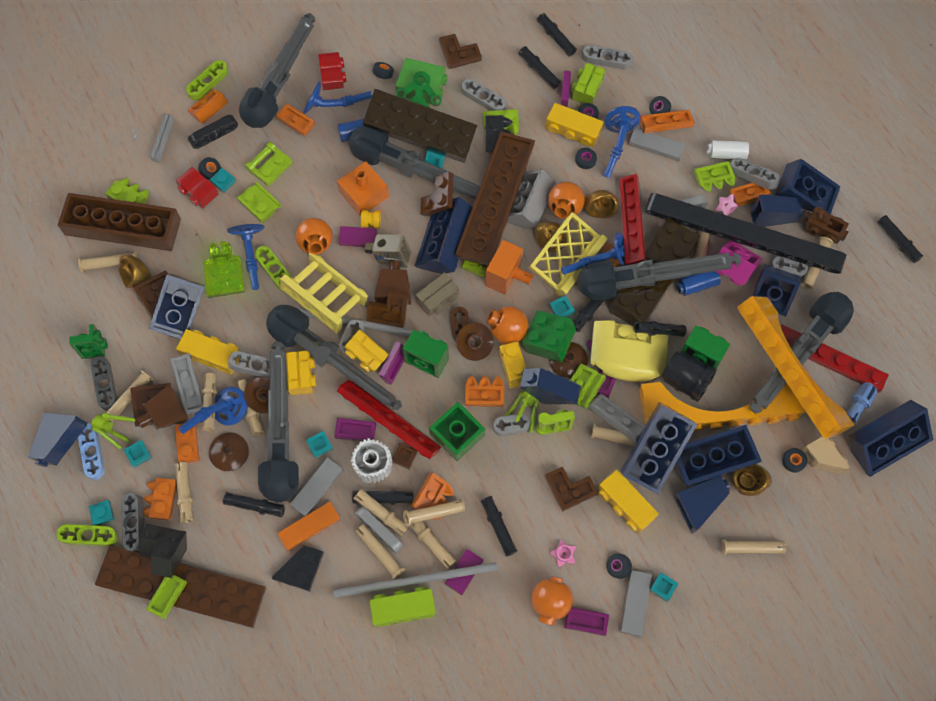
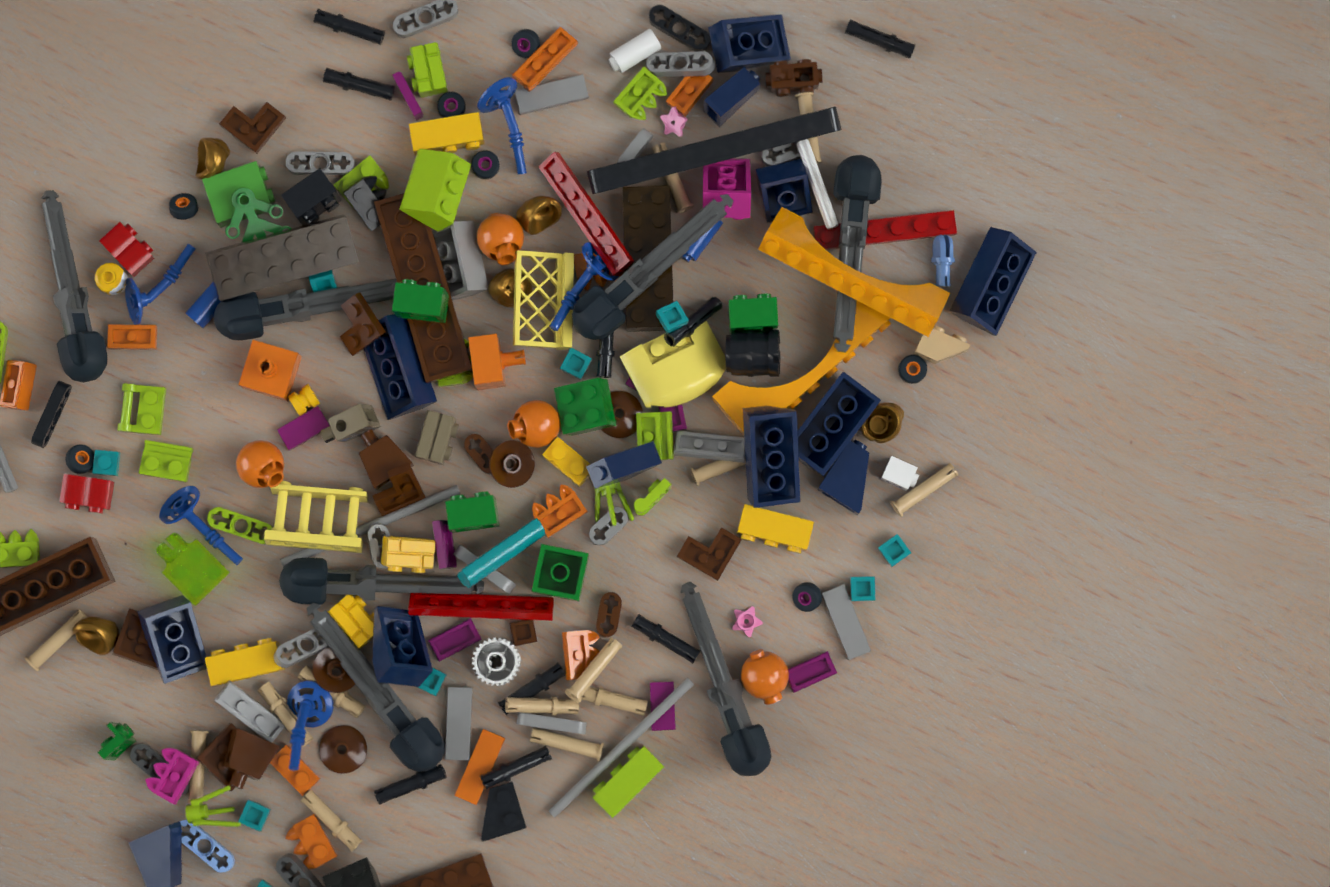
camera: 35 degrees left, 15 degrees up
(107, 389) = (173, 775): none -> dark pink plate
(308, 79) = (111, 278): none -> yellow head
(313, 406) = (399, 648): none -> dark blue slope
(323, 540) = (515, 767): none -> black pin
(408, 397) = (495, 577): none -> light grey beam
(422, 51) = (211, 157): none -> pearl gold hair
(426, 390) = (501, 553): none -> teal brick
(465, 103) = (312, 197): none -> black brick
(474, 487) = (603, 608): none -> reddish brown beam
(487, 198) = (420, 301): none -> green brick
(505, 637) = (745, 744): none -> piece
(545, 145) = (435, 188): none -> lime slope
(648, 312) = (672, 317): none -> teal plate
(704, 575) = (894, 550): none -> teal plate
(742, 524) = (900, 474): none -> white brick
(765, 147) = (660, 25): none -> black beam
(802, 296) = (817, 184): none -> white axle

